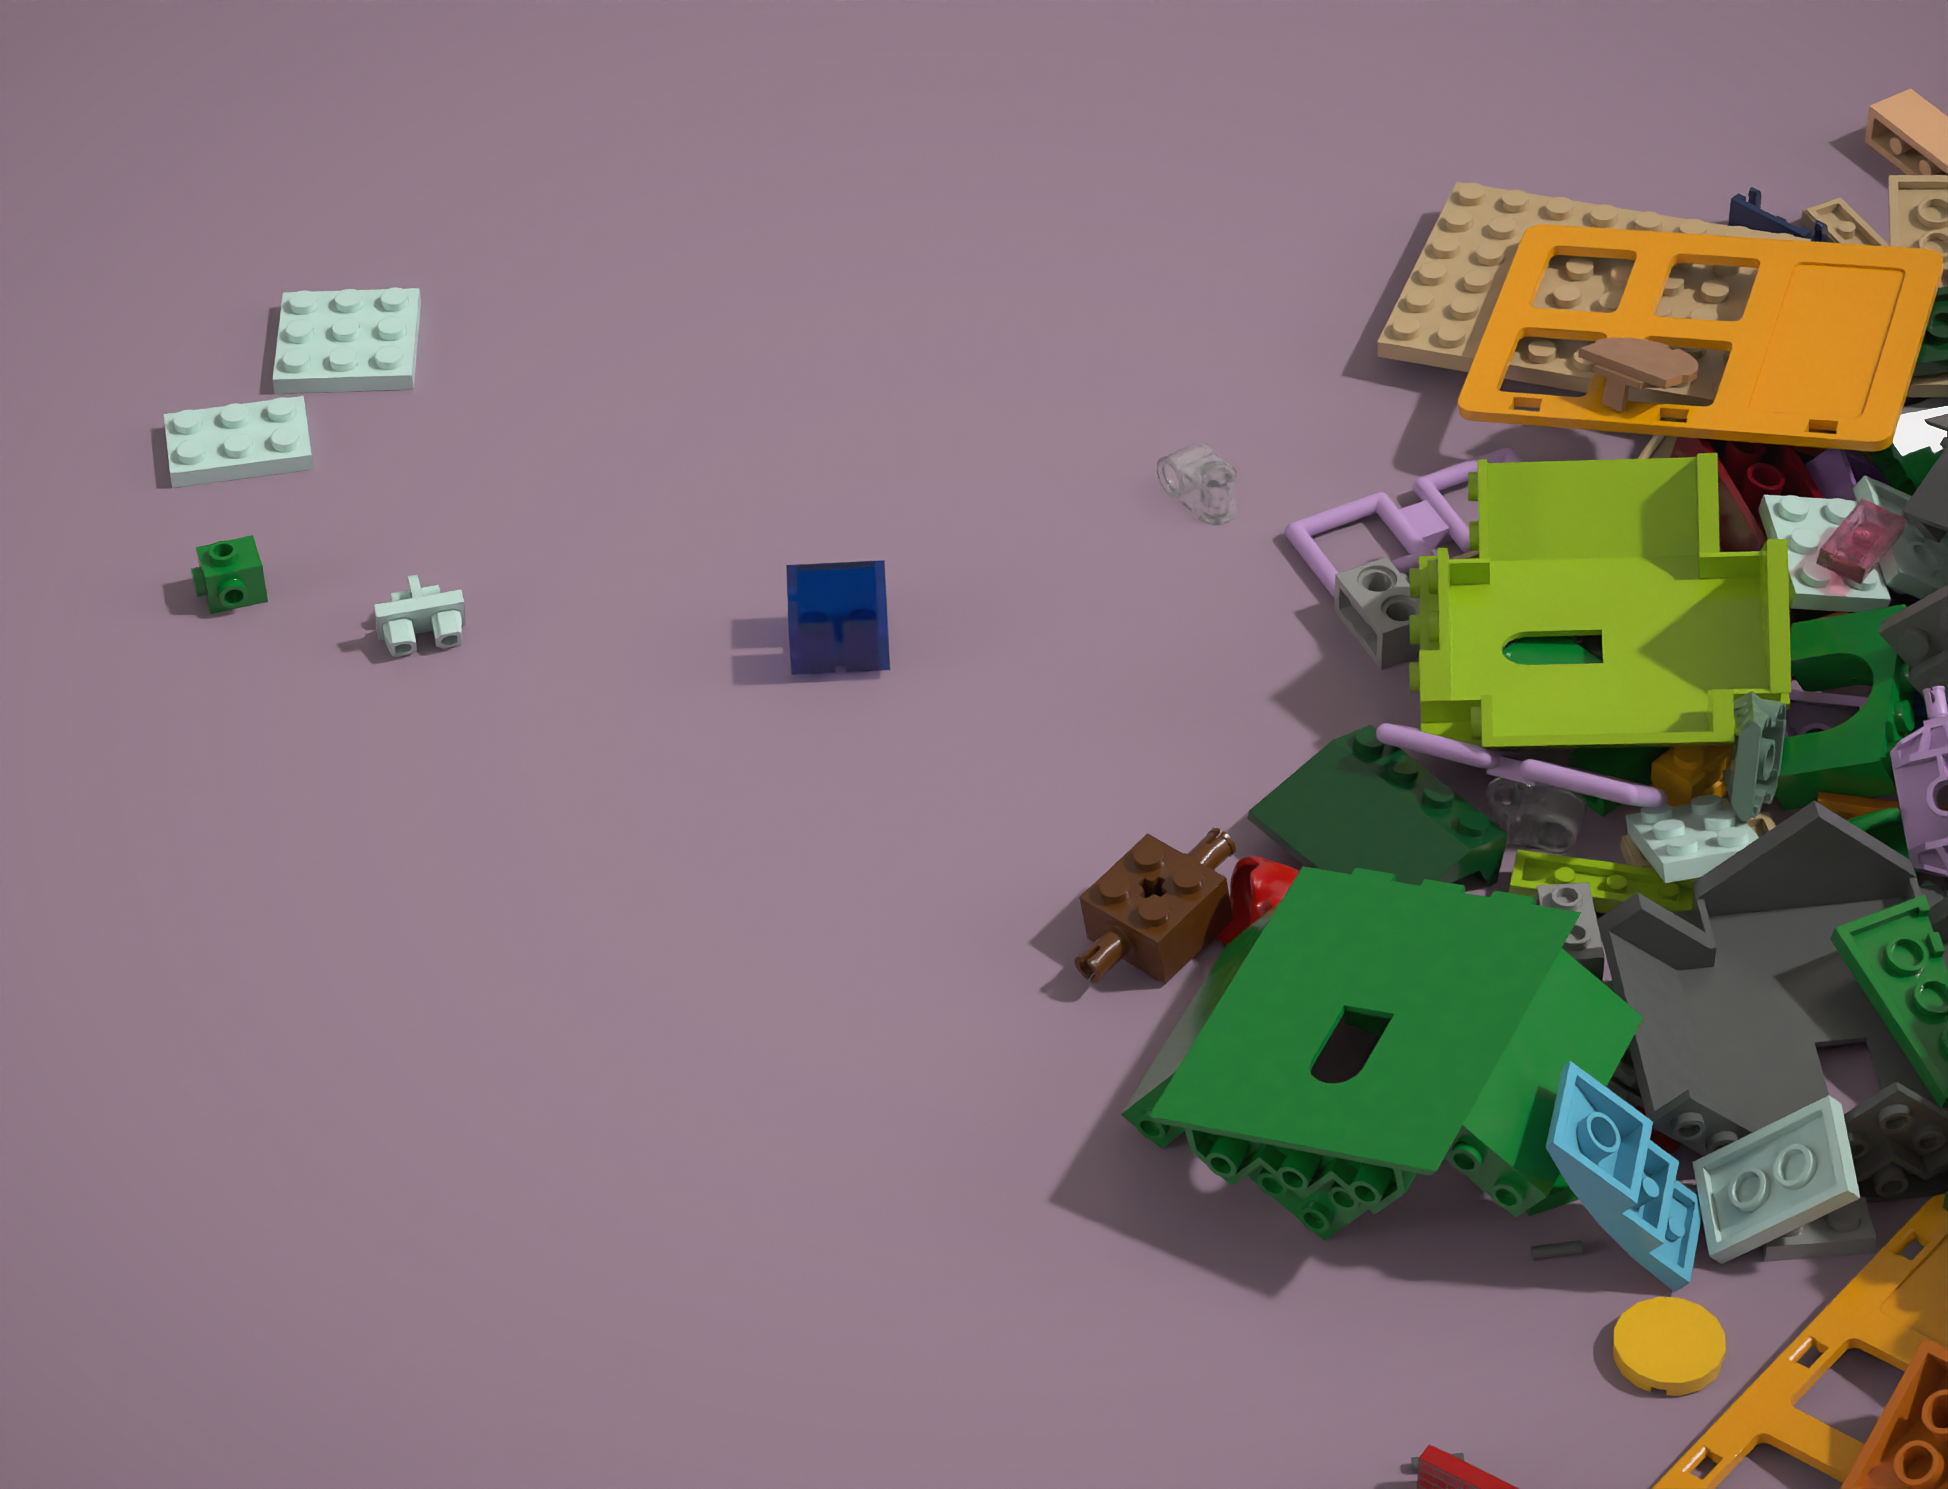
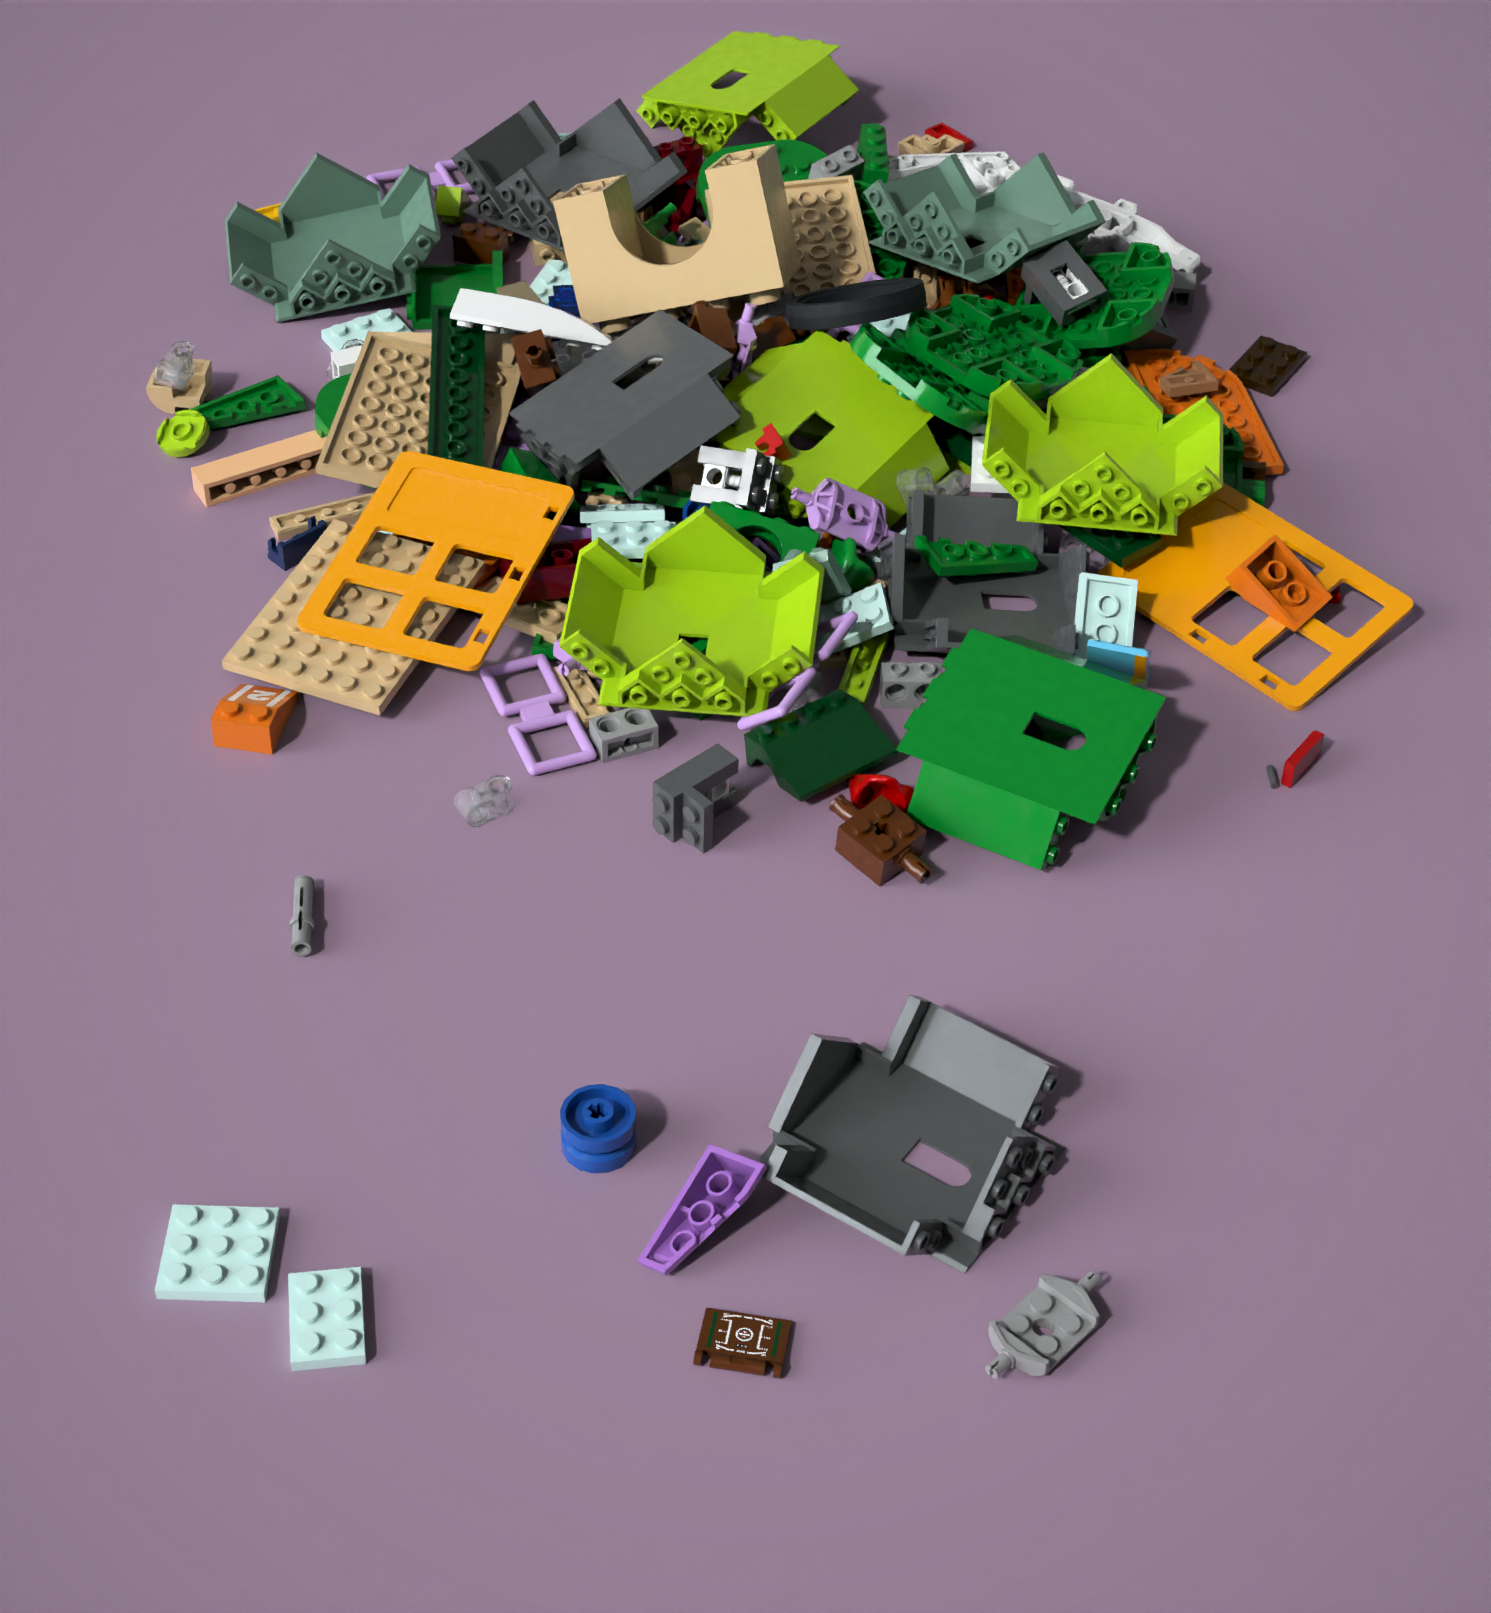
camera: 90 degrees left, 0 degrees up
(149, 1089) = (1053, 1305): none -> light grey plate
(174, 818) = (743, 1342): none -> reddish brown piece
(230, 574) = (496, 1309): green brick -> none
(407, 752) = (707, 1199): none -> medium lavender wedge
(420, 612) = (555, 1194): light aqua hips -> none
(533, 638) = (598, 1128): none -> blue wheel
(573, 902) = (938, 1083): none -> dark grey panel
(837, 617) = (604, 969): clear blue piece -> none
(955, 333) = (302, 924): none -> light grey pin
(1220, 683) = (693, 796): none -> dark grey brick
(1356, 235) = (252, 718): none -> orange slope
(1637, 365) = (481, 573): medium nougat piece -> none
(1669, 1345) = (1190, 686): yellow tile -> none
(1861, 541) = (648, 513): clear pink plate -> none

